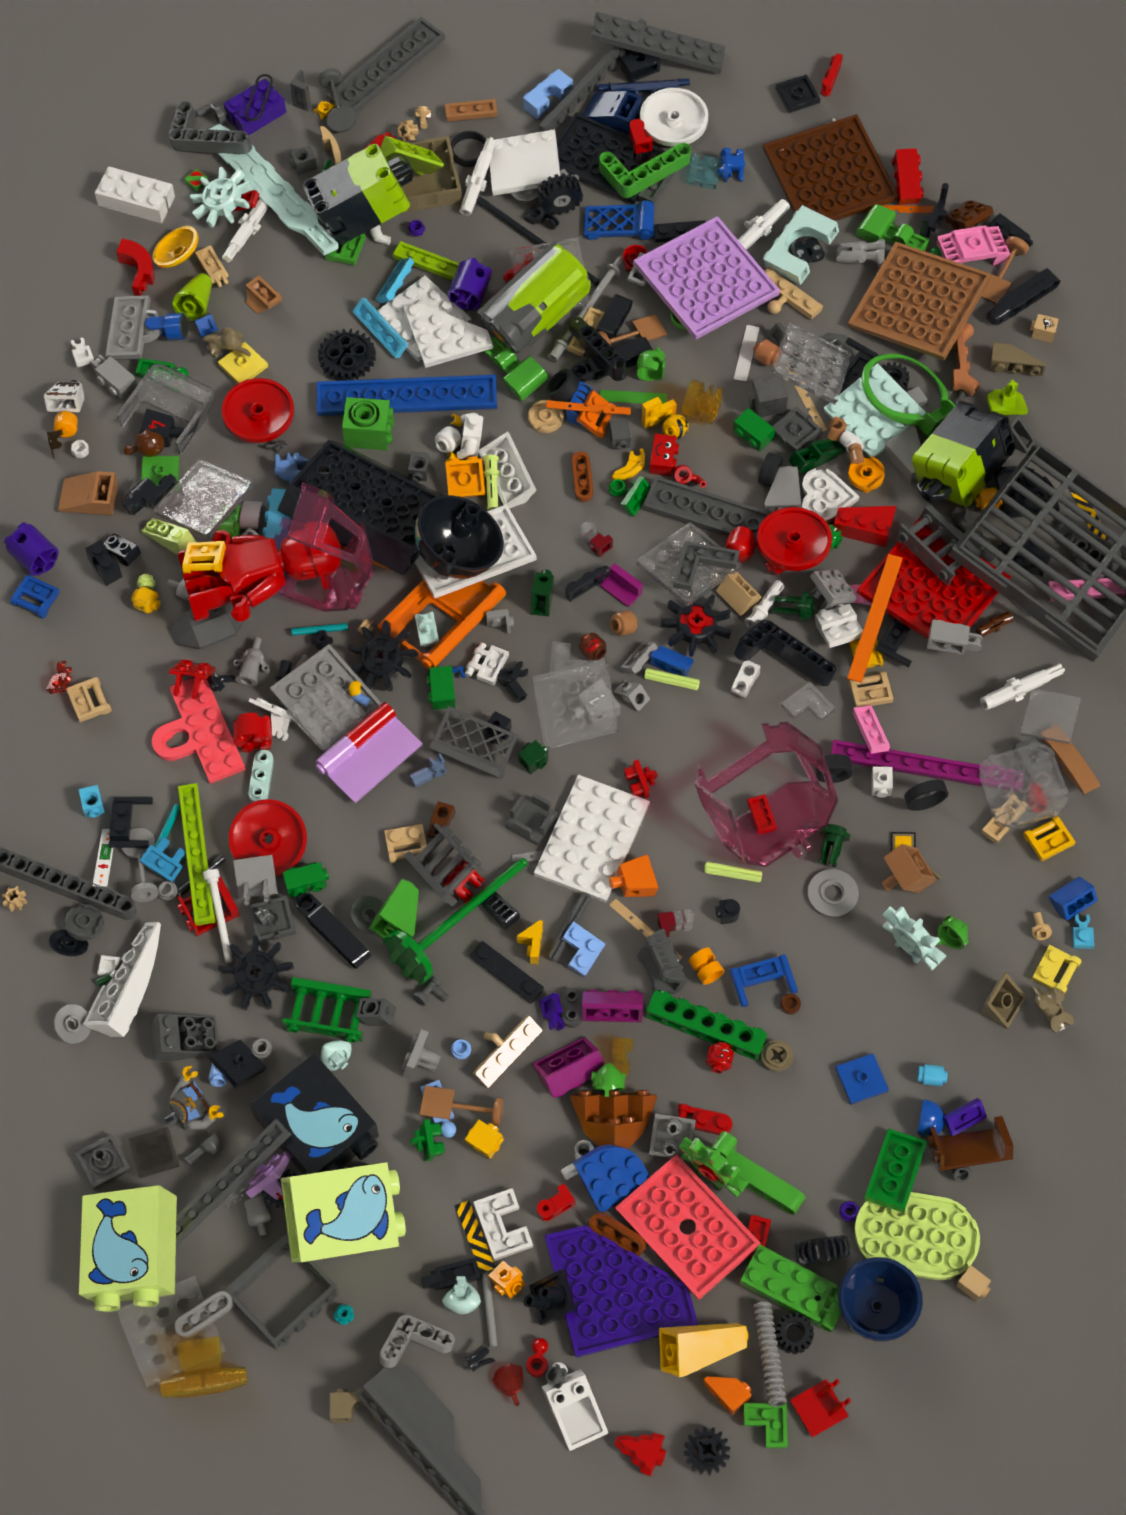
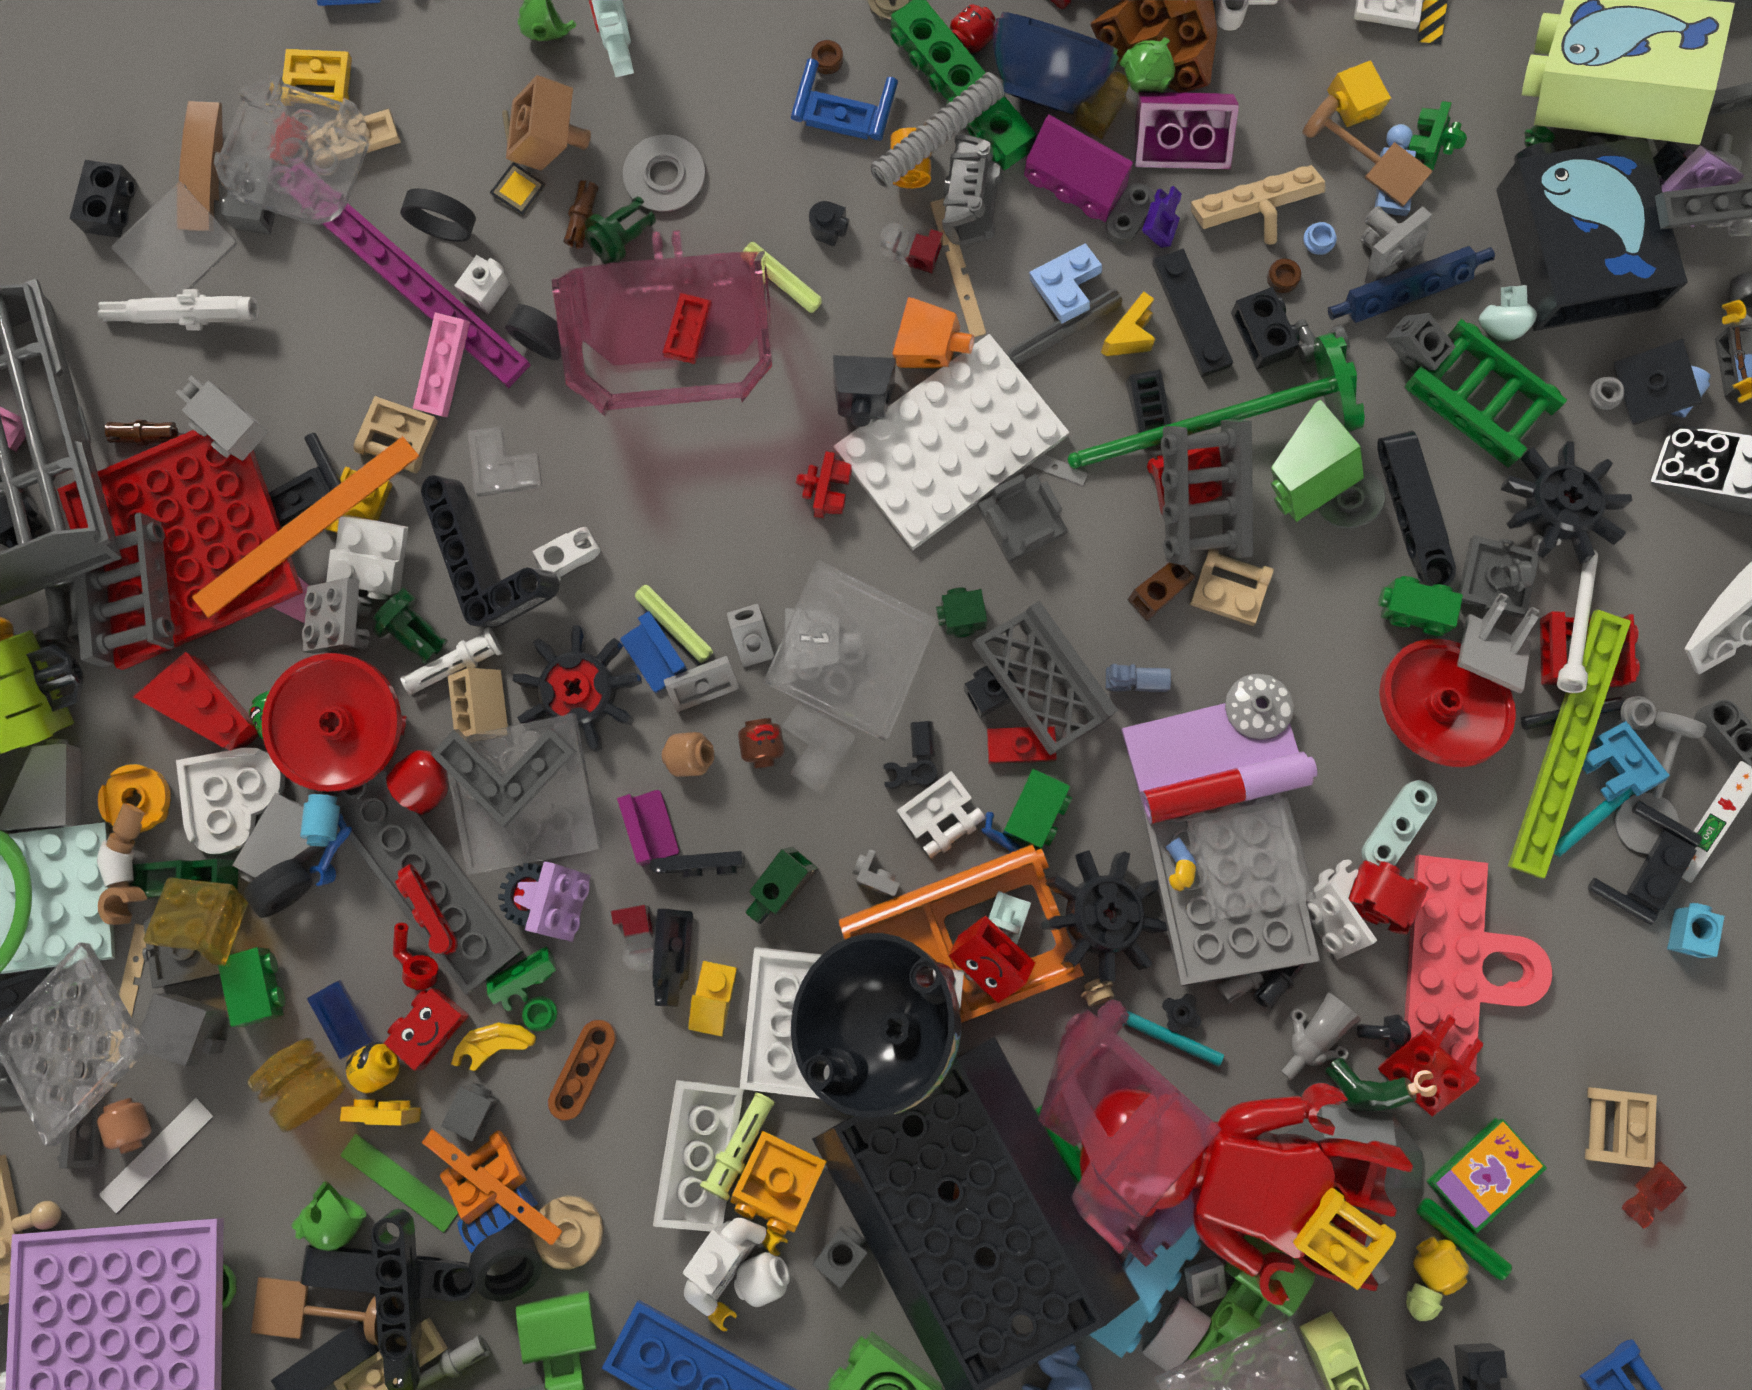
camera: 145 degrees left, 15 degrees up
(138, 617) = (1464, 1239): none -> green axle
(142, 648) = (1486, 1175): none -> piece
(214, 647) = (1374, 1095): none -> dark green arm
(360, 796) = (1255, 721): none -> light grey dish
(392, 1051) = (1411, 284): none -> dark blue plate
(423, 604) = (991, 959): none -> red brick
(466, 977) = (1257, 329): none -> black brick
(469, 1019) = (1284, 275): none -> reddish brown tile
(474, 709) = (1017, 745): none -> red plate
(543, 535) = (712, 998): none -> yellow slope
(574, 540) = (671, 955): none -> black hinge
(645, 528) = (545, 899): none -> lavender plate
(651, 831) = (863, 387): none -> black torso
(663, 1049) = (1049, 62): none -> dark blue piece
(695, 494) = (426, 910): none -> red plate
(697, 973) = (937, 130): none -> light grey piece
(703, 437) = (340, 1019): none -> clear blue plate
(758, 493) = (326, 870): none -> blue piece
(769, 499) = (320, 820): none -> medium azure brick
(794, 435) = (197, 918): none -> clear yellow bracket
(859, 846) = (579, 213): none -> reddish brown pin
(1108, 716) = (96, 197): none -> black brick

